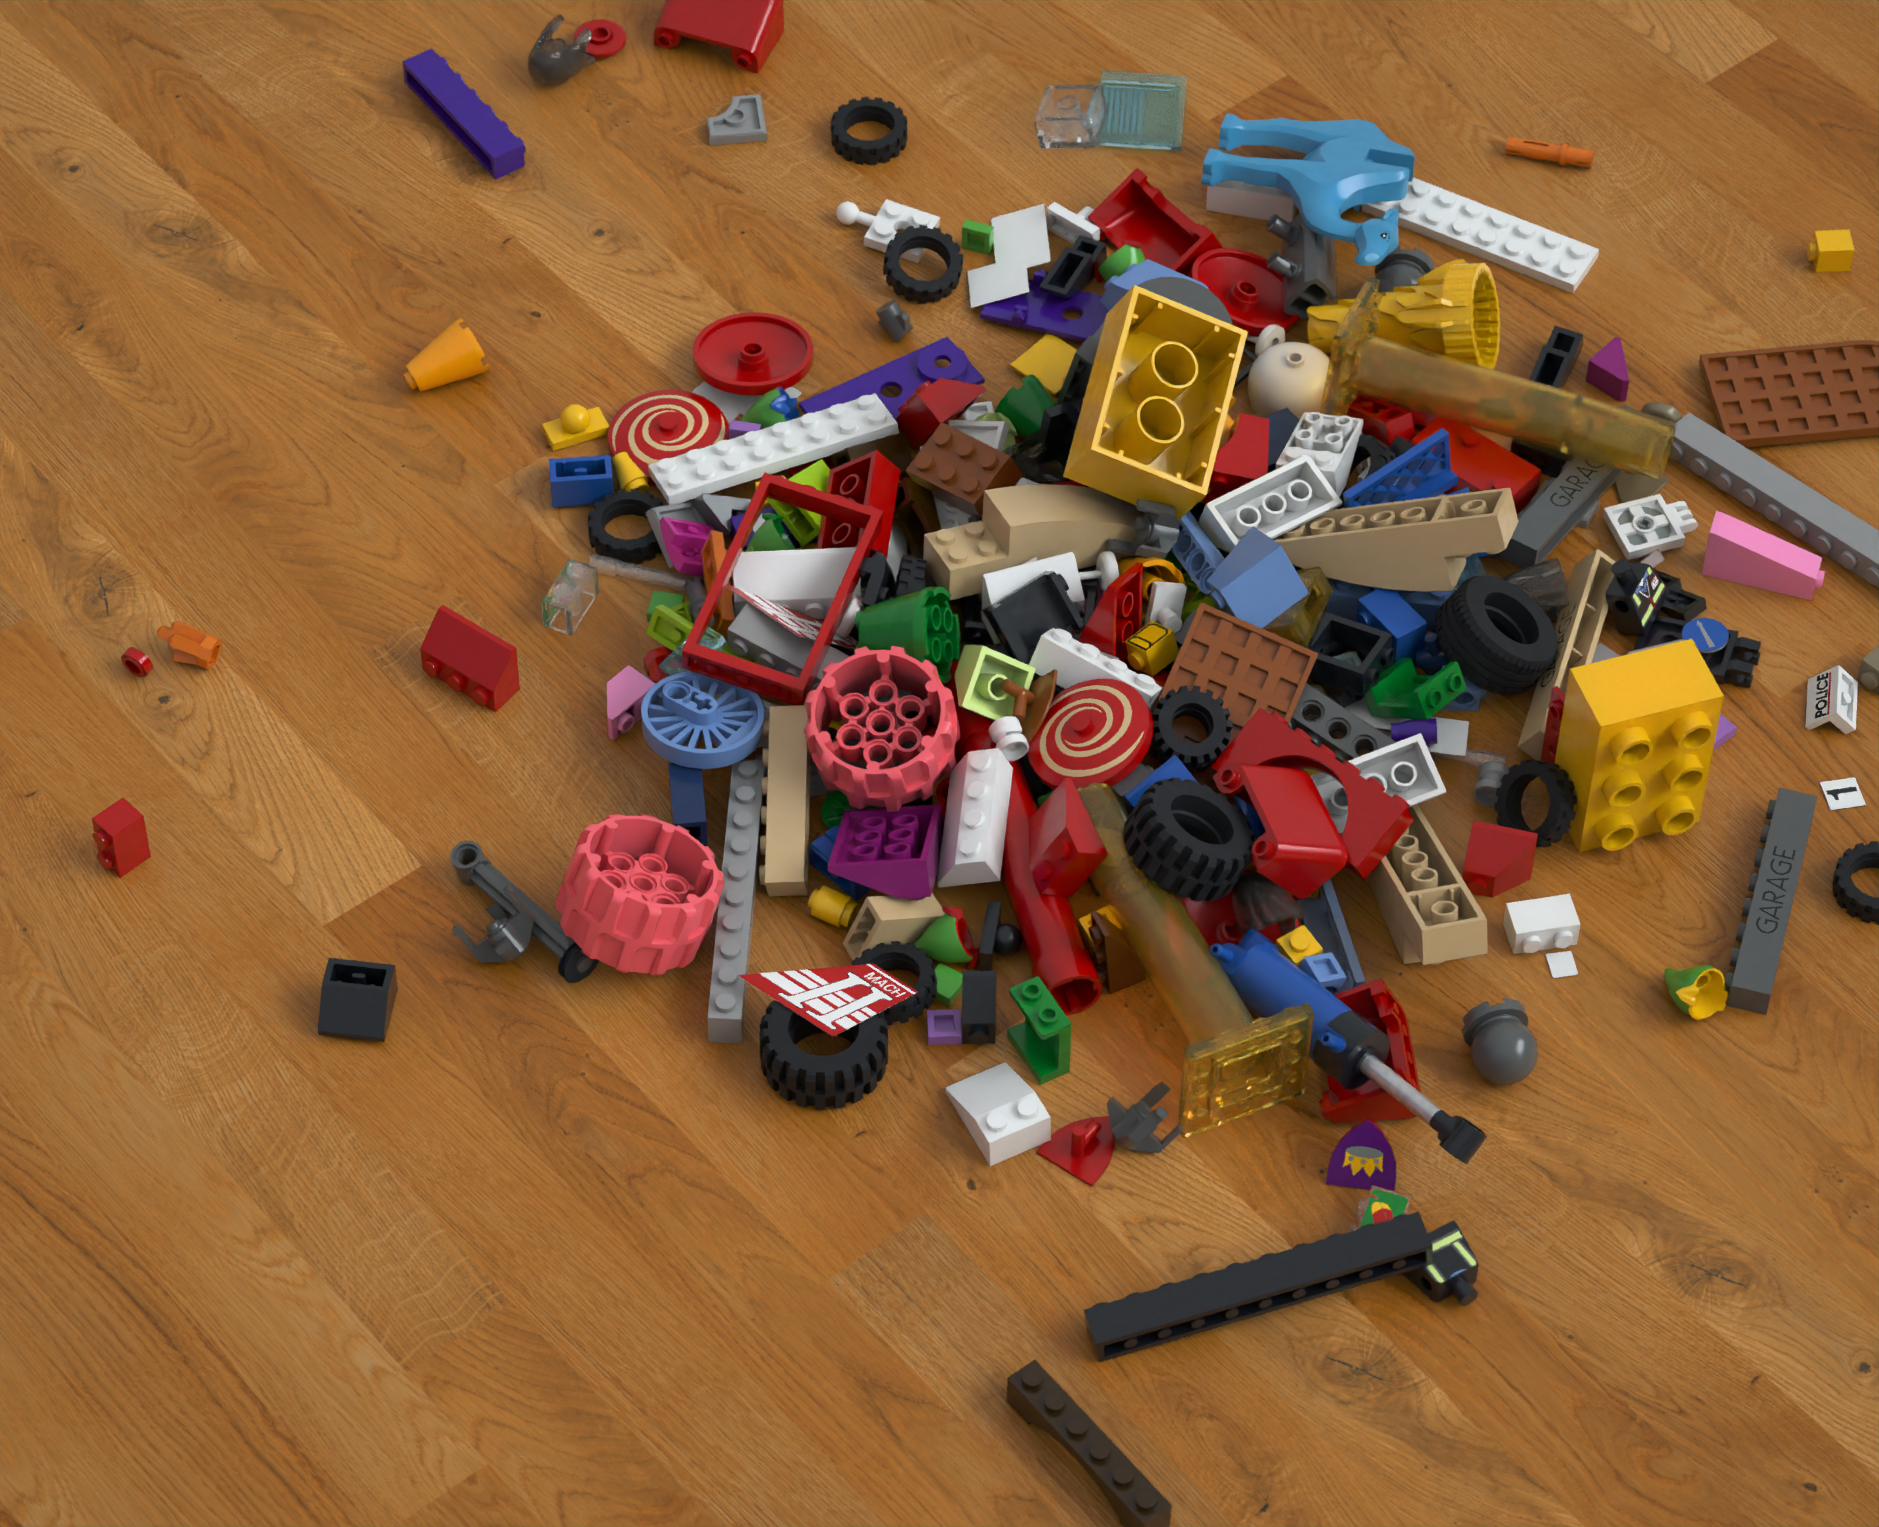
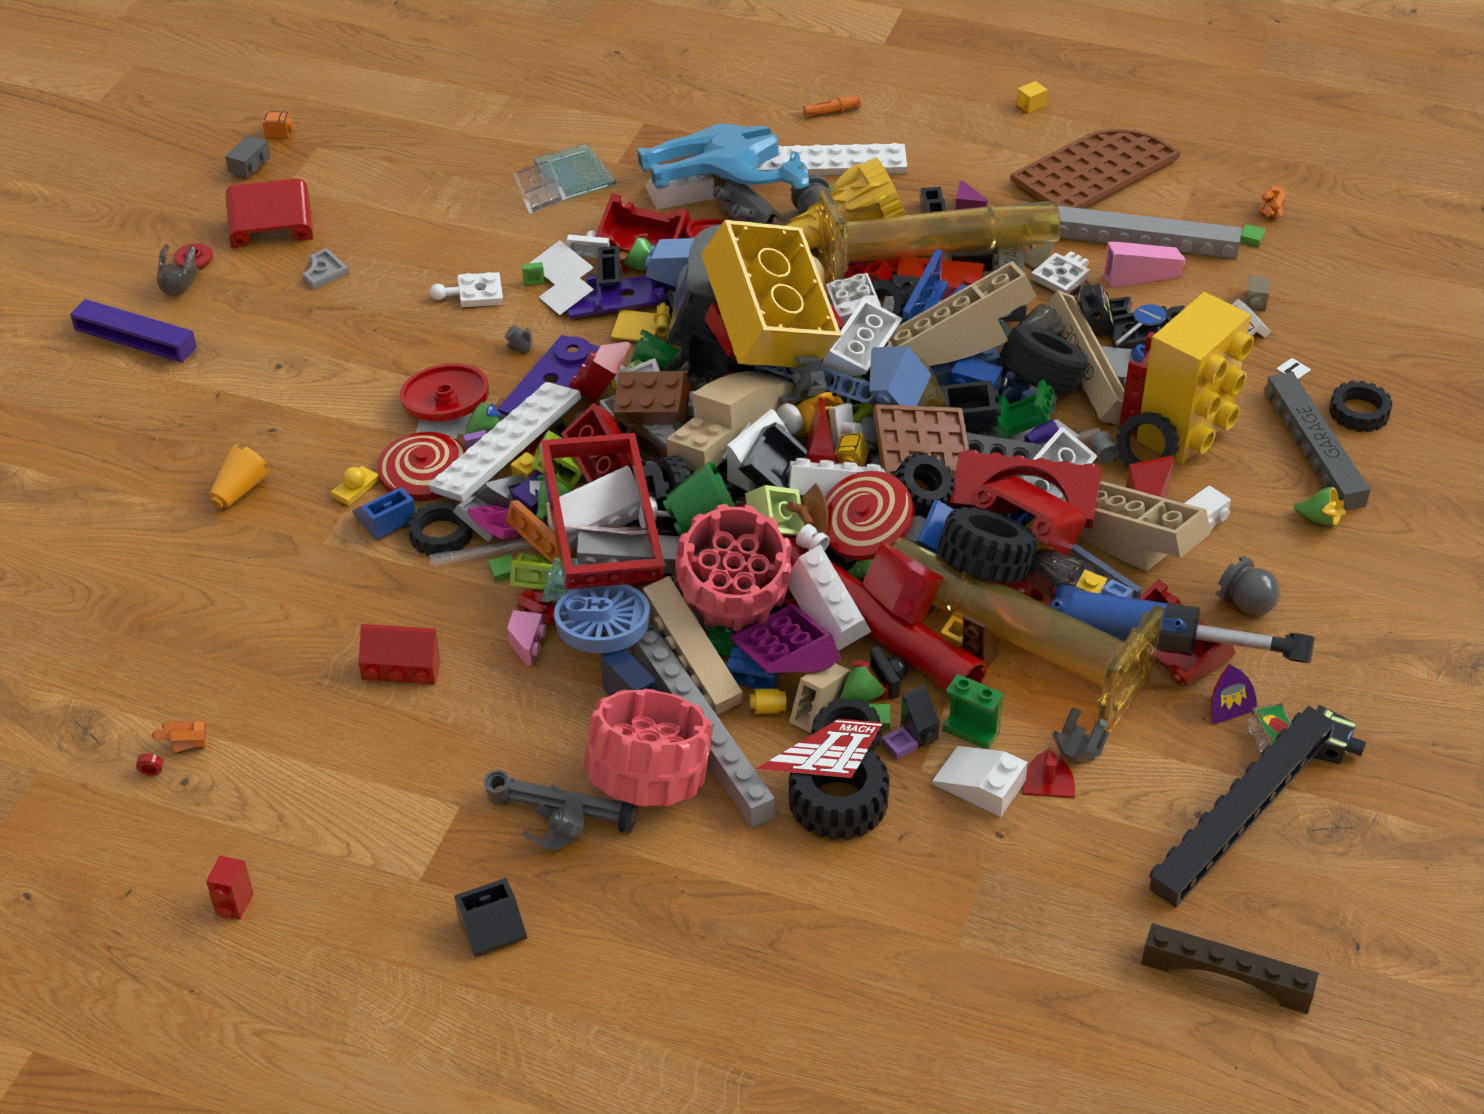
camera: 30 degrees left, 5 degrees down
(570, 596) = (435, 587): clear brick -> none
(629, 474) = (420, 496): yellow cone -> none
(697, 596) = (536, 551): dark grey pin -> none
(874, 111) = (417, 254): black tyre -> none
(918, 289) = (512, 316): black tyre -> none
(1561, 964) = (1230, 531): white sticker -> none

